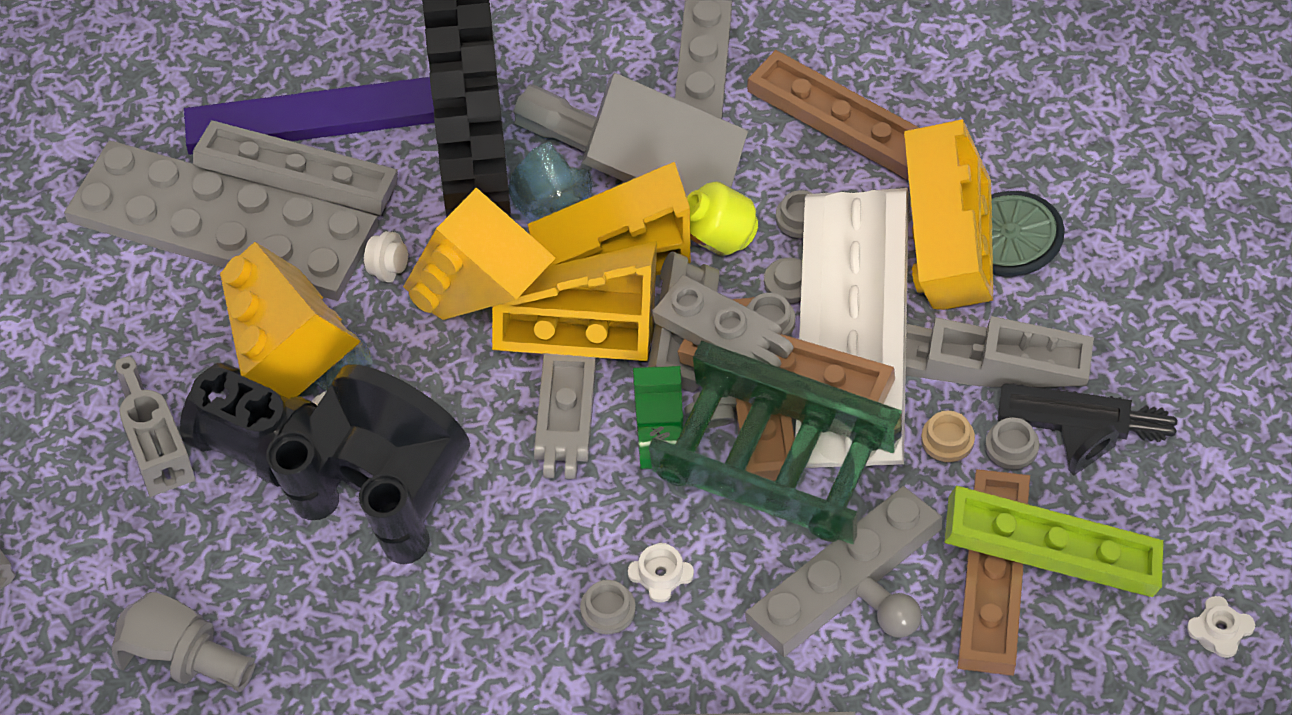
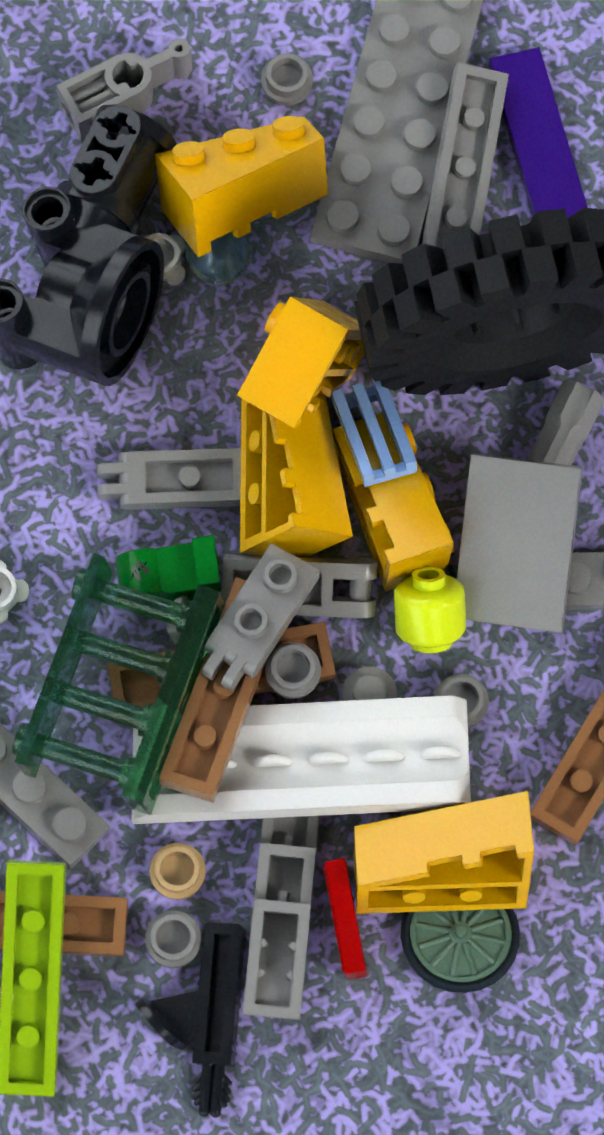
camera: 80 degrees right, 20 degrees up
(168, 301) = (286, 79): none -> light grey plate
(385, 256) = (352, 272): white plate -> none
(547, 183) = (453, 427): clear light blue hair -> none
(556, 216) = (362, 398): none -> light blue tile
(1017, 302) = (345, 919): none -> red tile

